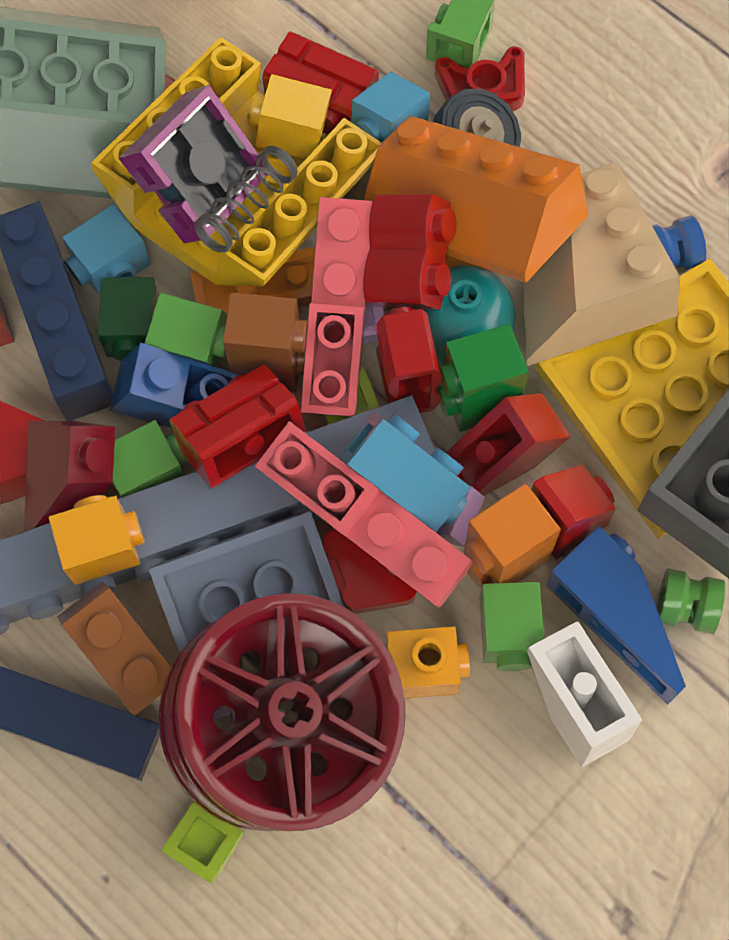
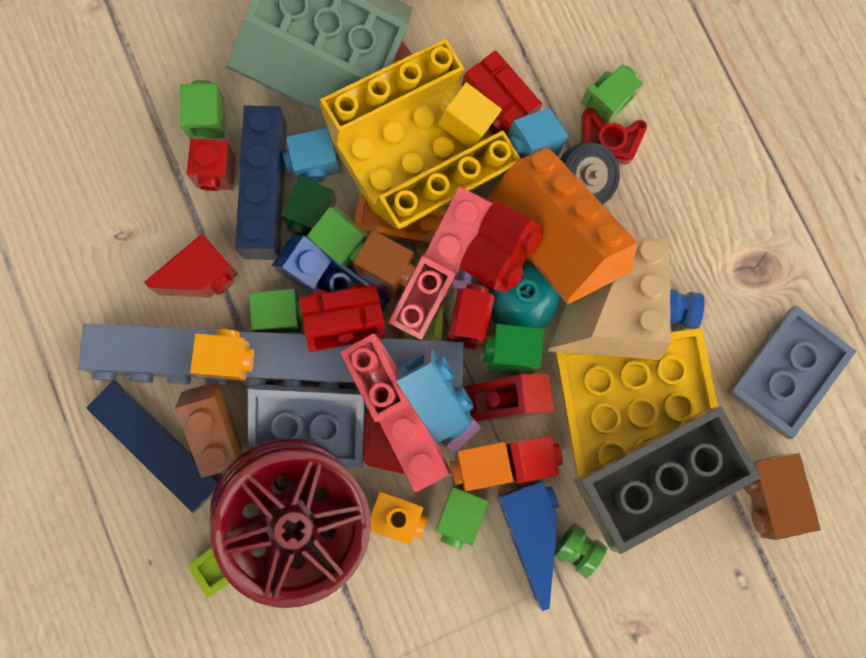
camera: 15 degrees right, 10 degrees up
(65, 466) = (224, 298): dark red slope -> none
(192, 161) = (387, 129): piece -> none
(279, 178) = (373, 175): dark grey piece -> none
(582, 694) = (483, 584): white slope -> none

